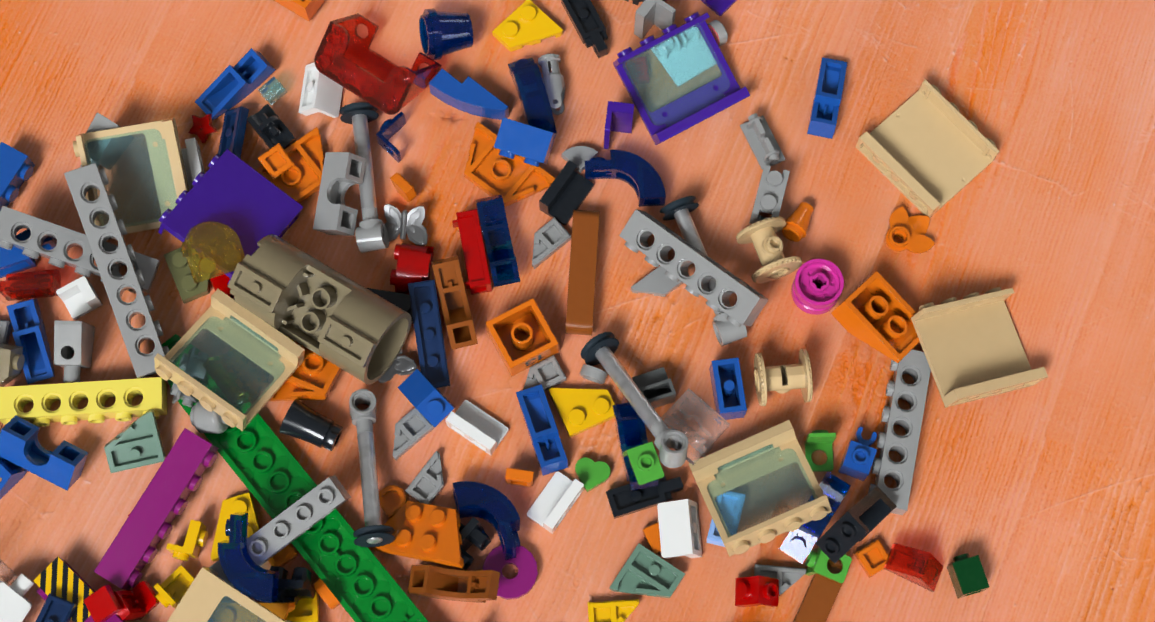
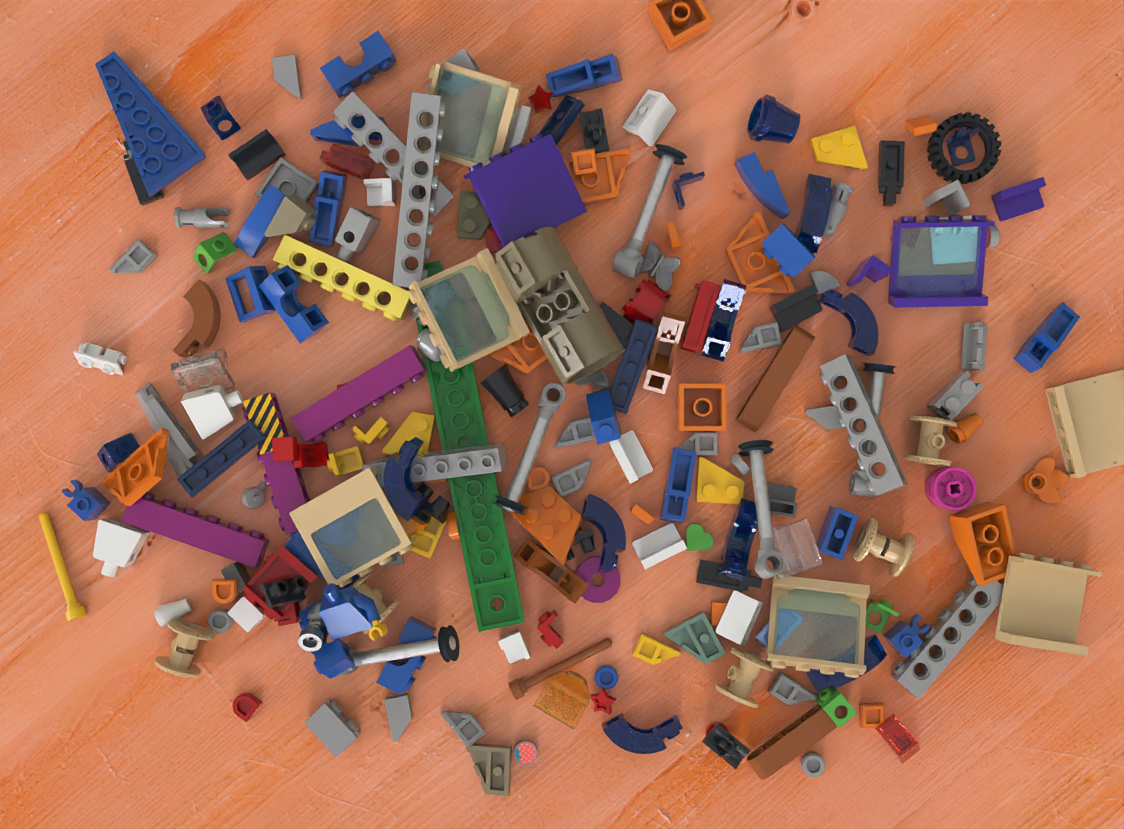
camera: 25 degrees right, 15 degrees up
(136, 445) = (367, 335): sand green wing -> none
(212, 250) = (497, 217): clear yellow slope -> none
(272, 91) = (611, 97): clear light blue hose -> none
(338, 174) = (627, 199): light grey arch -> none
(352, 64) = (693, 123): clear red windscreen -> none
(645, 463) = (742, 559): bright green bracket -> none
(714, 587) = (743, 676): none -> tan hose
(756, 591) = (771, 695): red bracket -> none
(855, 524) = (865, 692): black panel -> none
(967, 575) = (934, 768): dark green brick -> none

